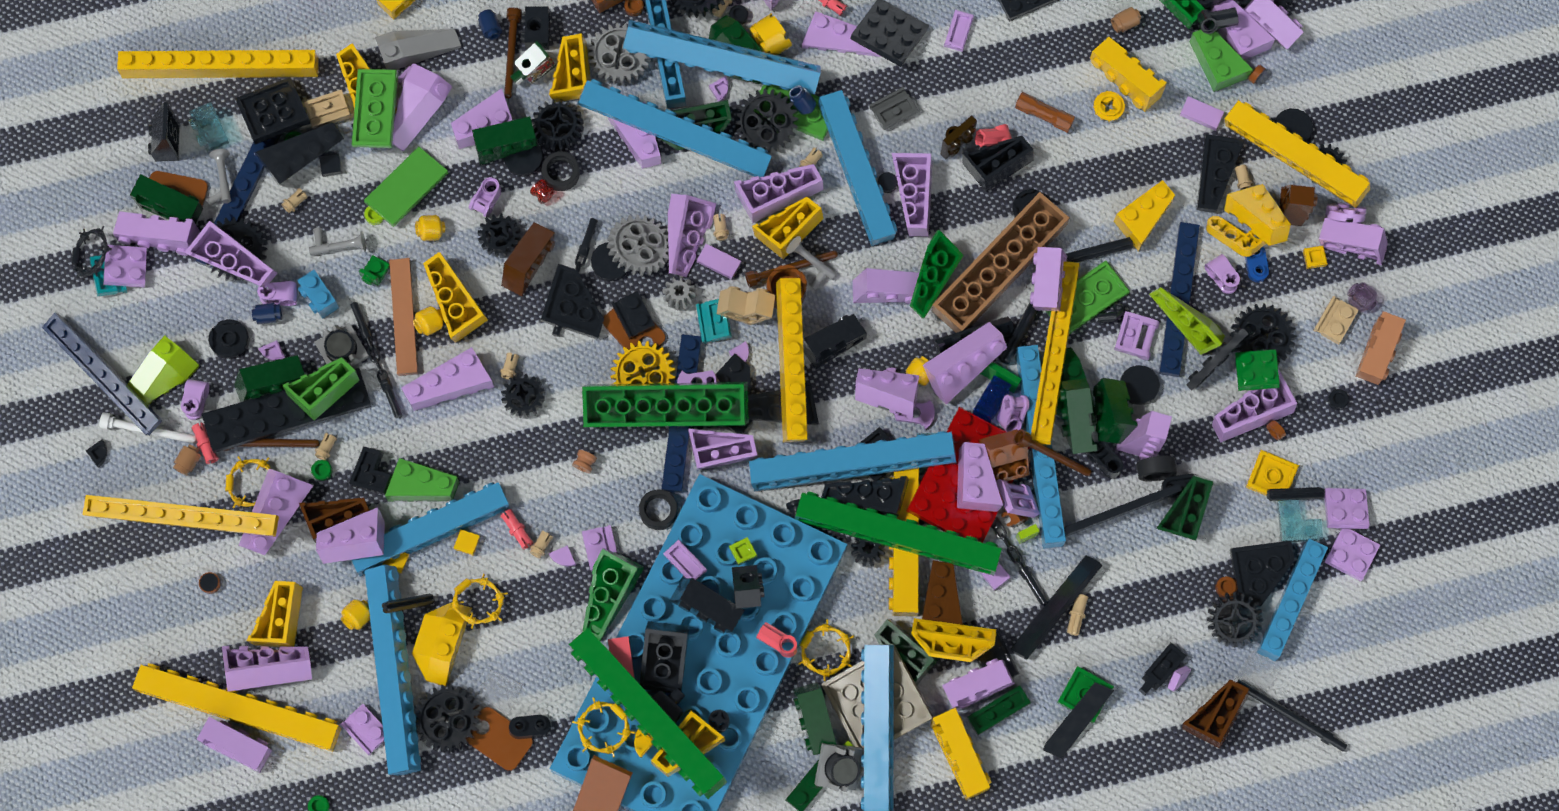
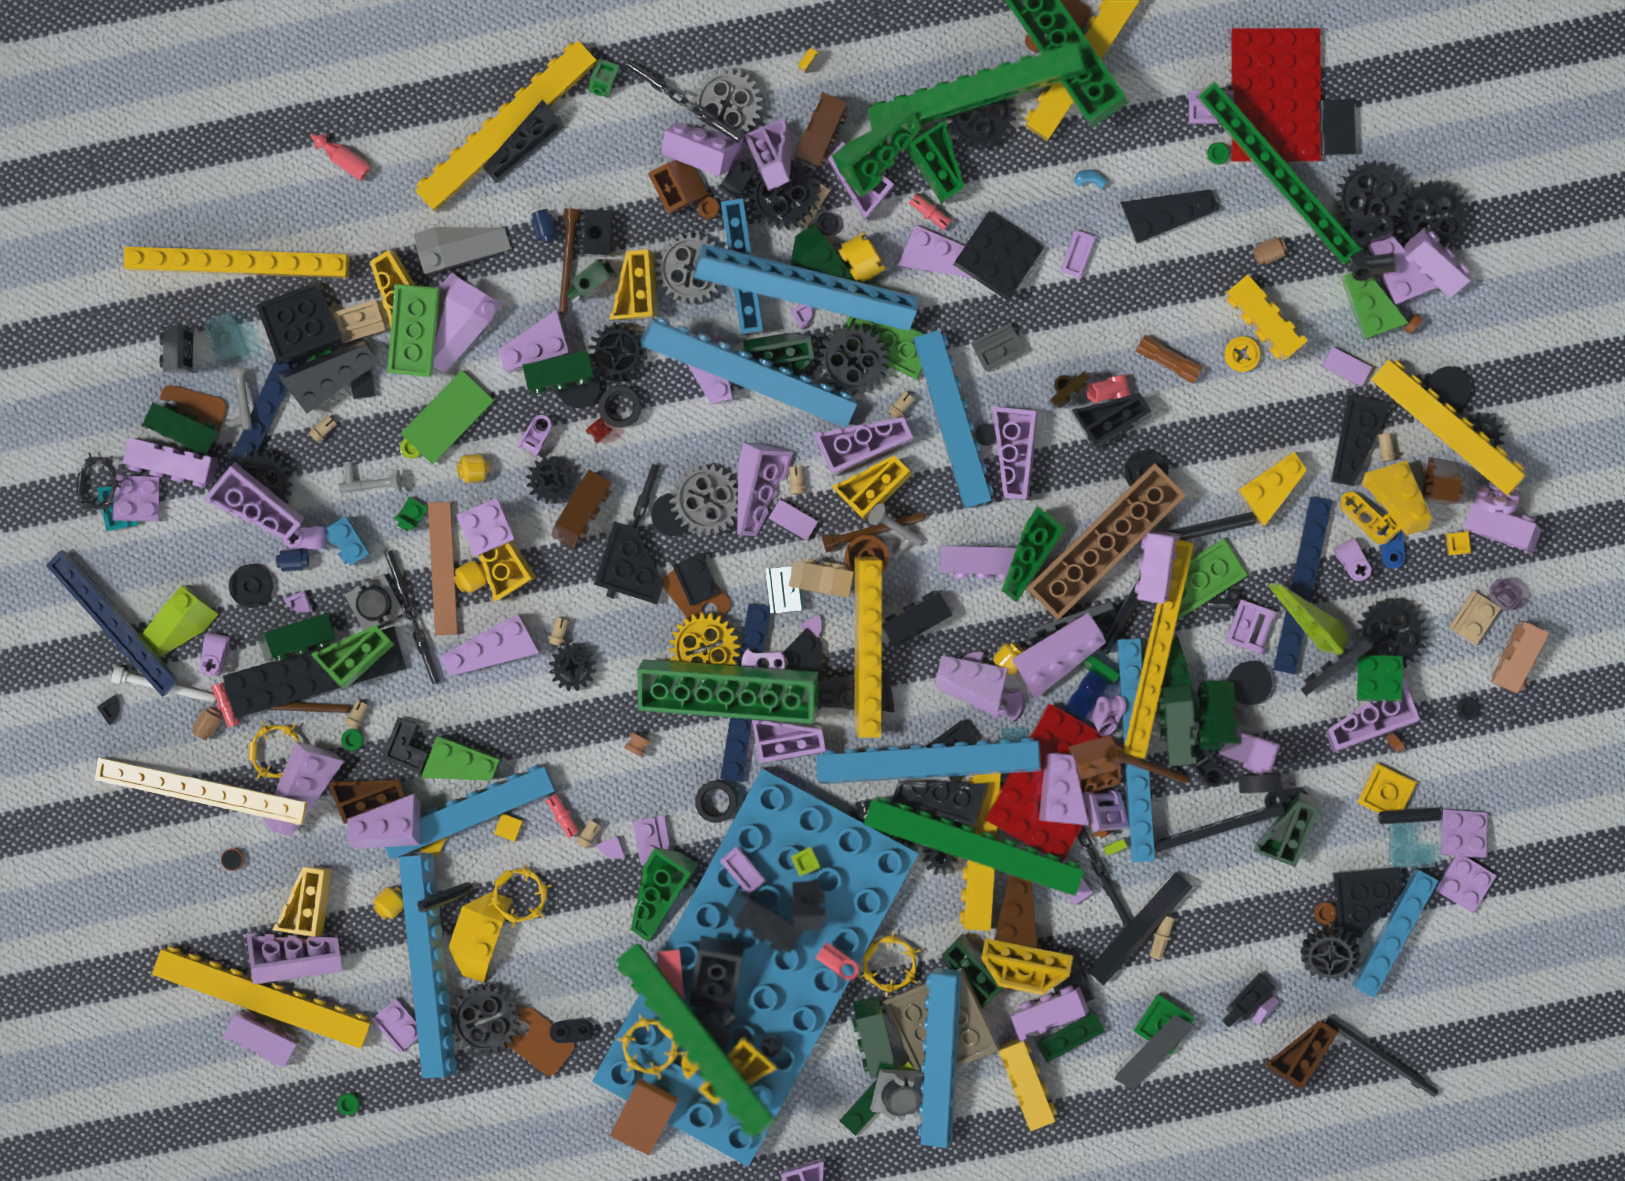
camera: 10 degrees right, 15 degrees up
(441, 270) = (486, 526): none -> lavender plate
(672, 288) = (755, 556): light grey gear -> none
(802, 100) = (894, 338): dark blue brick -> none

